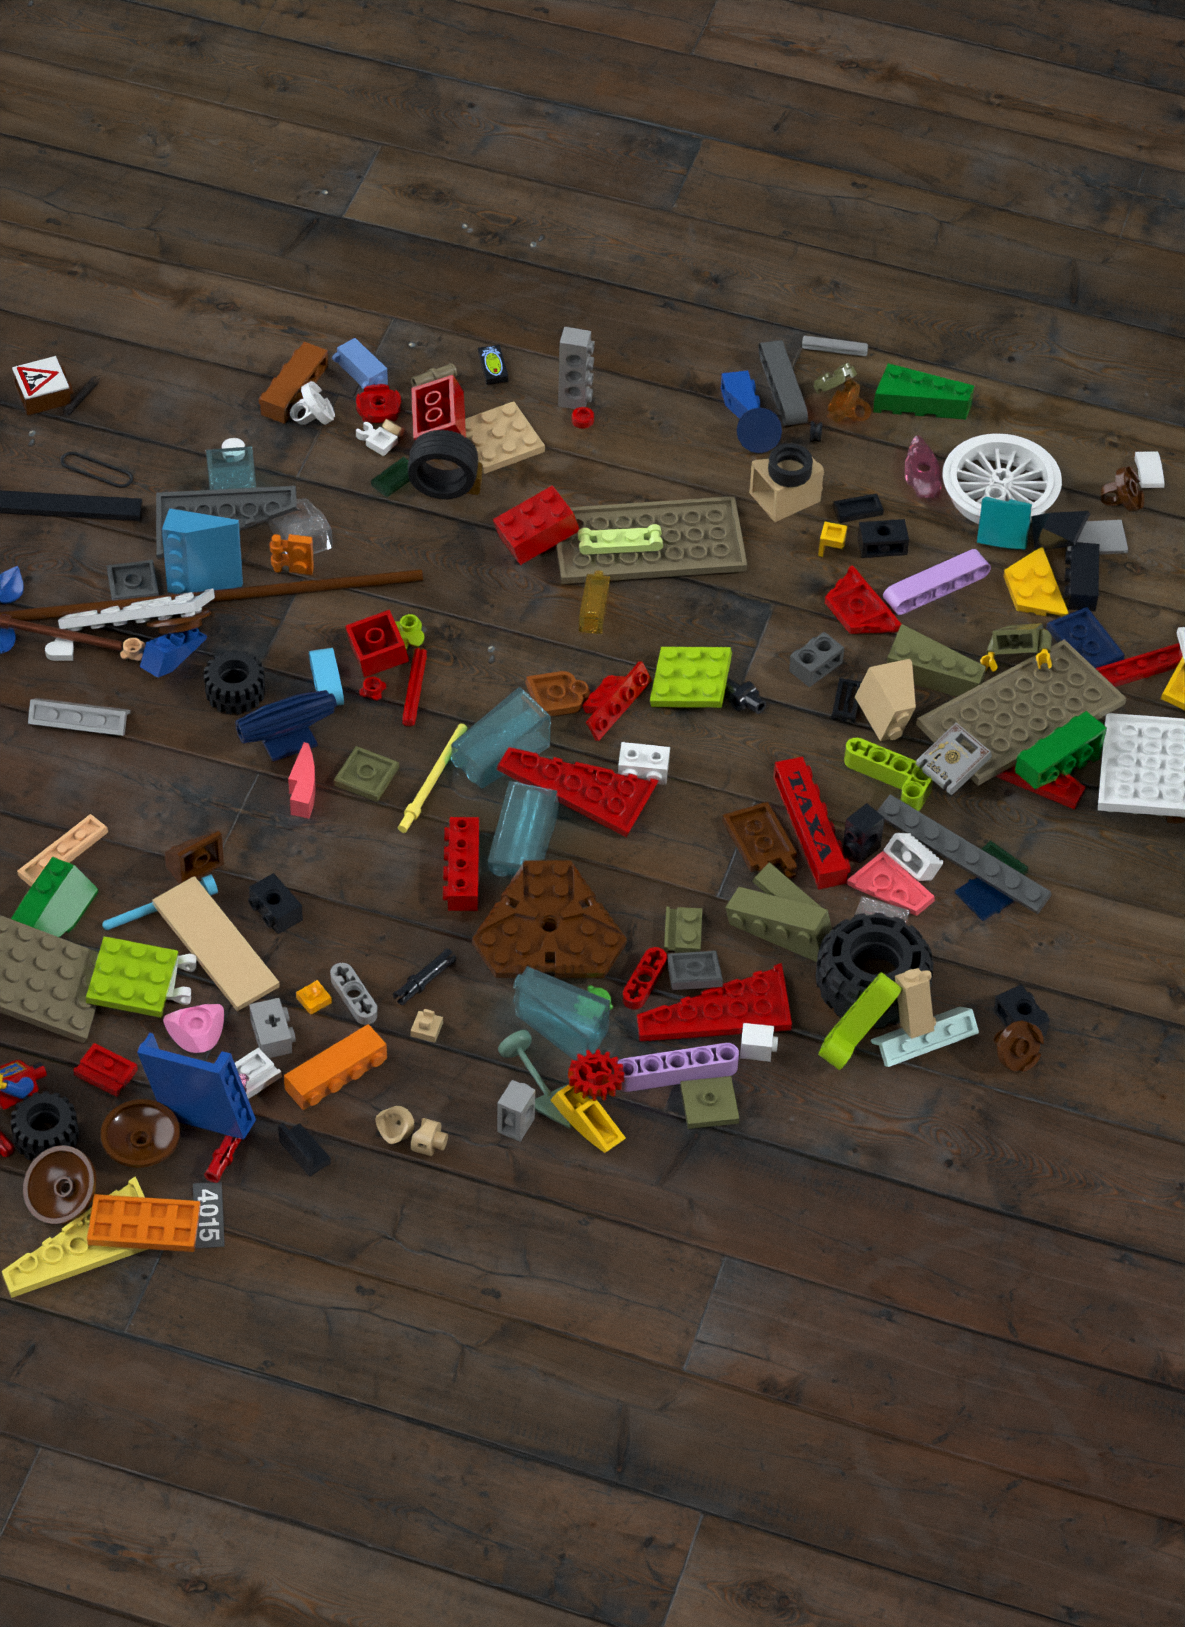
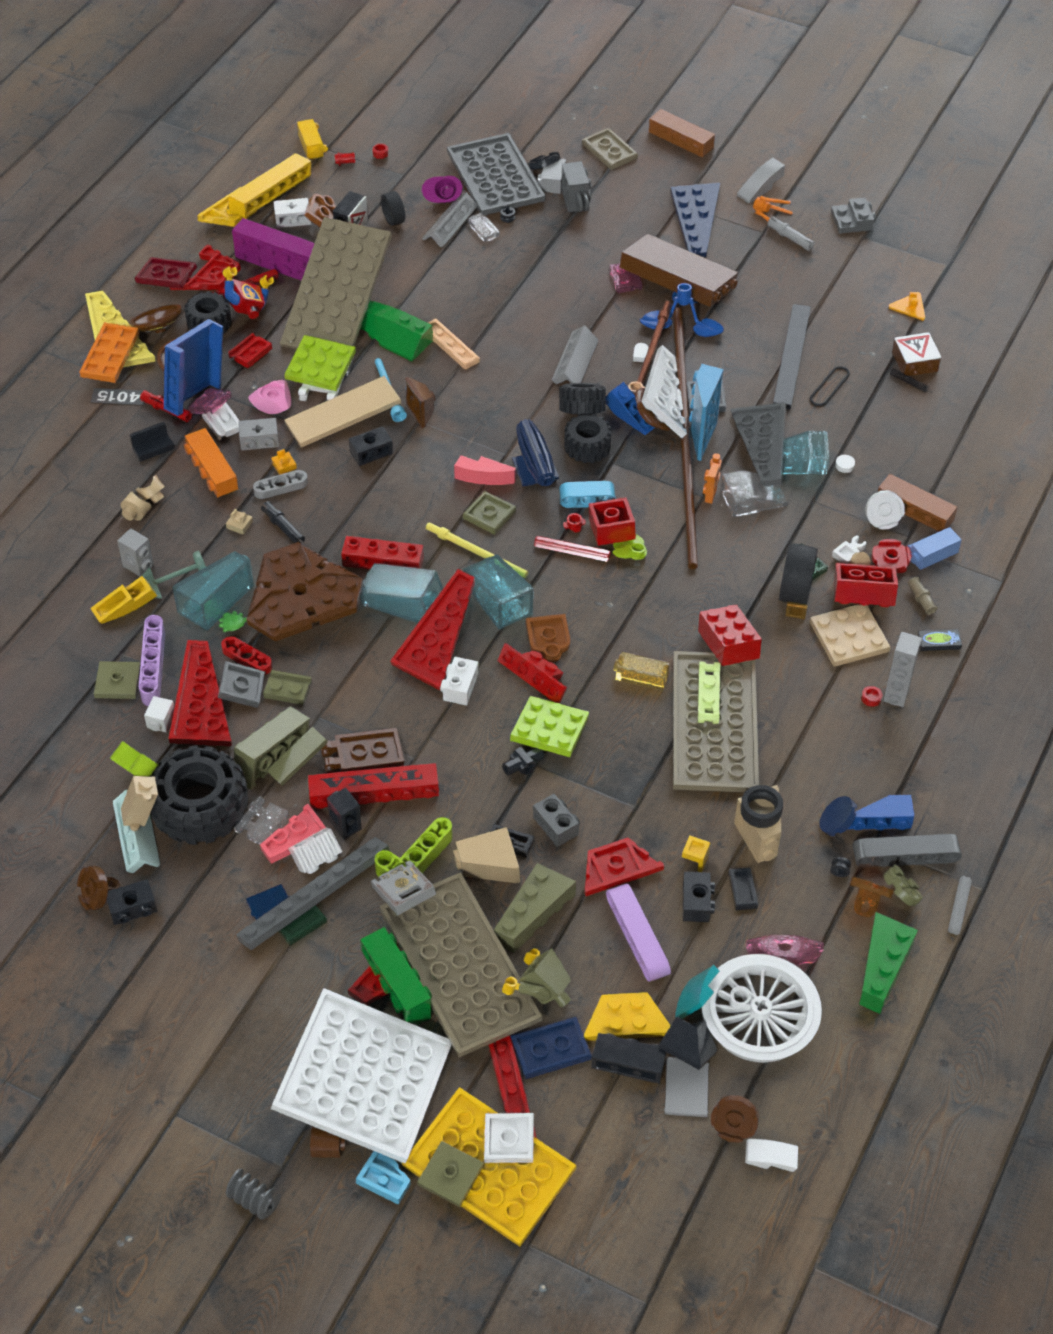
camera: 100 degrees right, 0 degrees up
(175, 685) = (582, 398): none -> black tyre
(598, 1075) = (147, 598): red gear -> none

